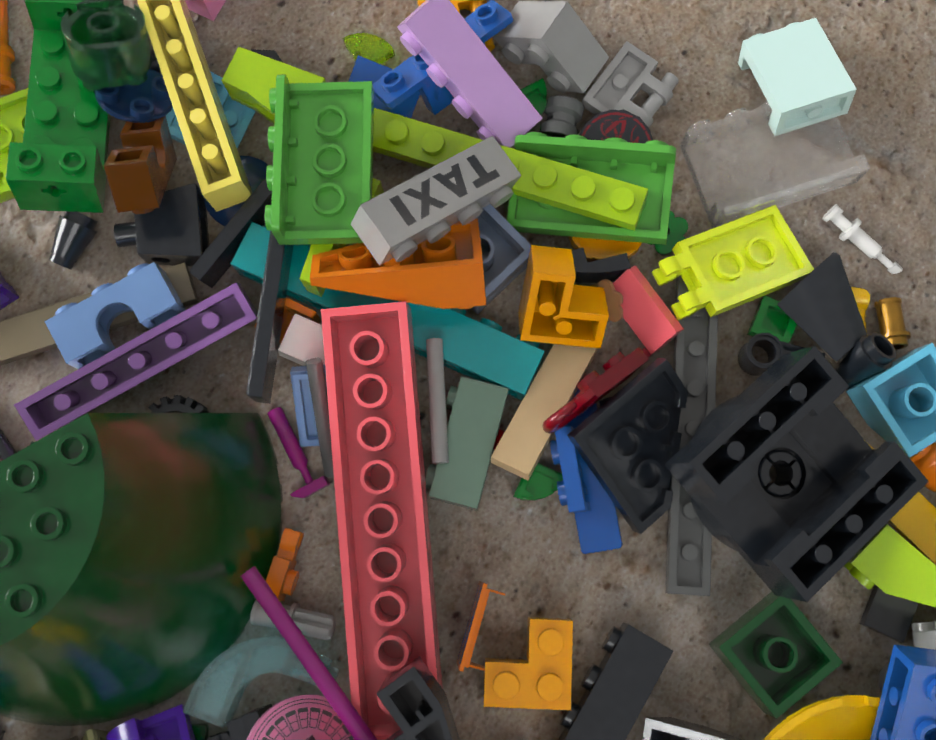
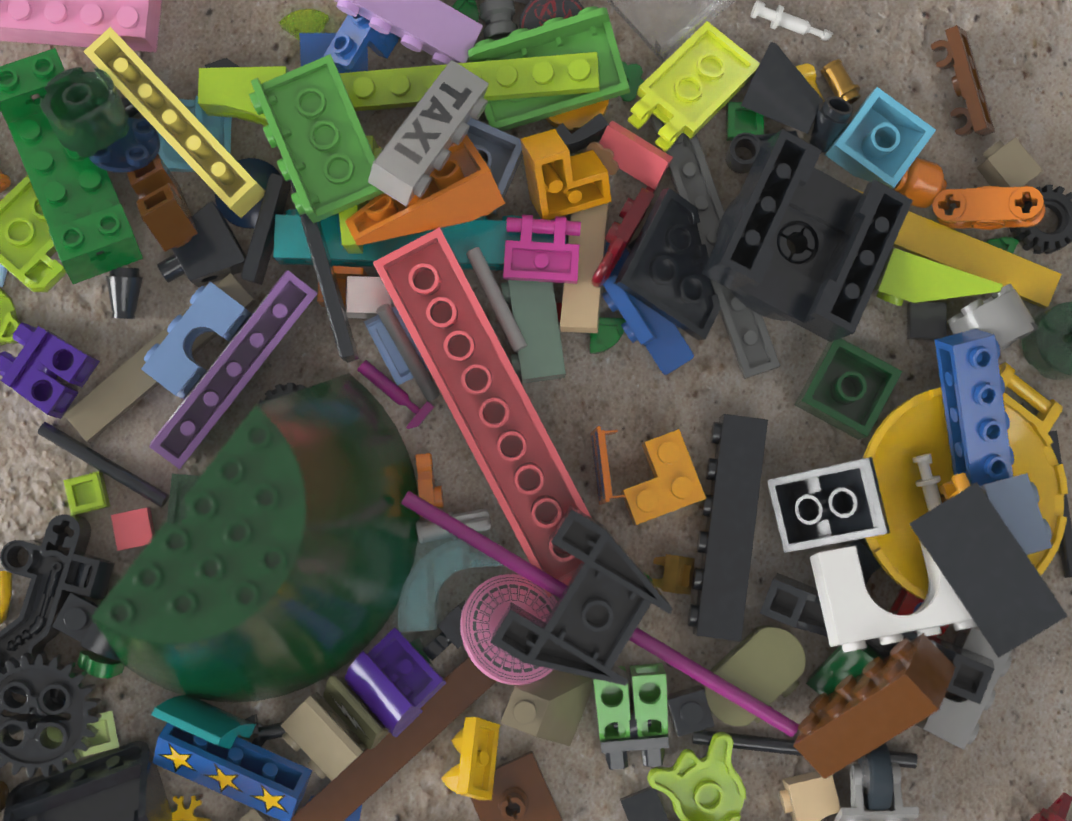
camera: 25 degrees left, 5 degrees up
(500, 379) = (542, 260): none -> dark pink plate

